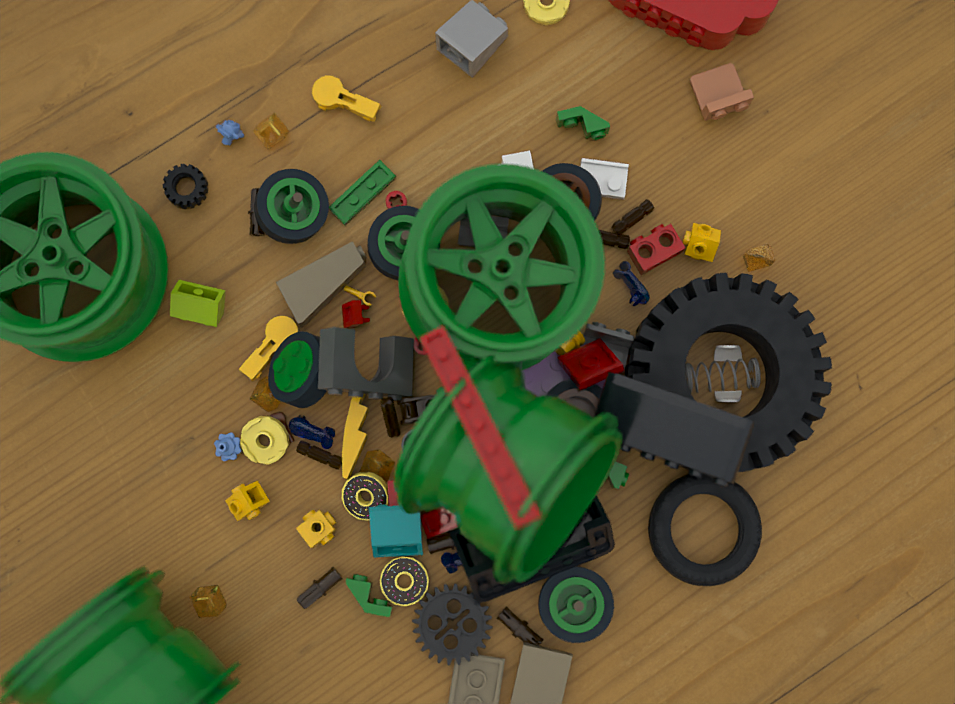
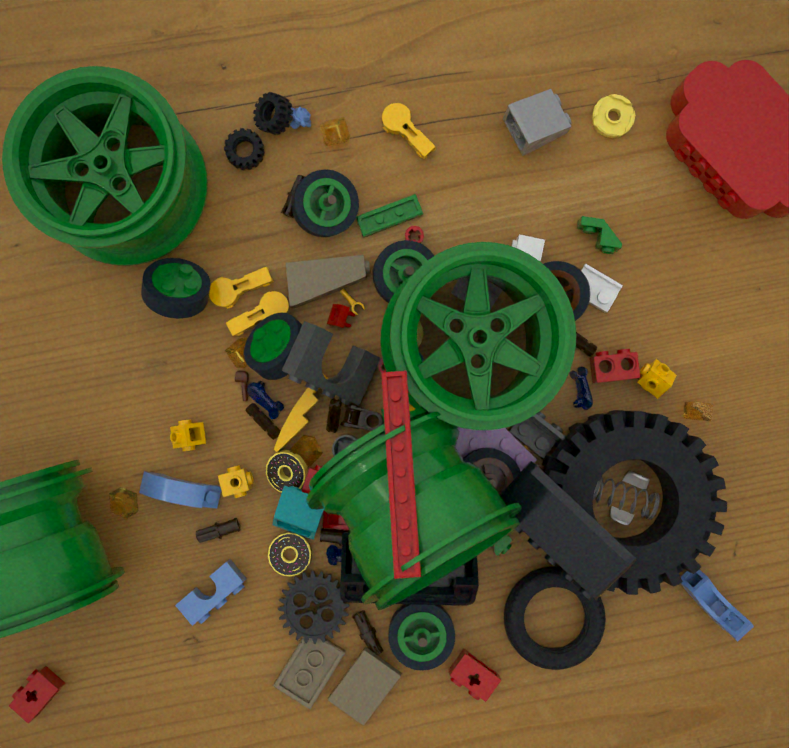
camera: 20 degrees right, 5 degrees up
(173, 354) = (175, 288): none -> wheel
(190, 139) = (264, 111): none -> black tyre
(197, 303) = (213, 252): lime brick -> none
(227, 343) = (223, 292): none -> yellow piece
(227, 446) = (190, 382): medium blue plant -> none
(262, 561) = (179, 491): none -> medium blue arch
(274, 430) = (234, 388): light yellow tile -> none
(331, 676) = (197, 605): none -> medium blue arch
(361, 590) = (251, 545): green slope -> none
(590, 363) = (519, 444): red tile -> none
(633, 217) = (607, 331): dark brown axle -> none
(663, 623) = (468, 664): none -> red brick
(720, 92) = (727, 256): nougat bracket -> none
(859, 445) = (715, 605): none -> medium blue arch

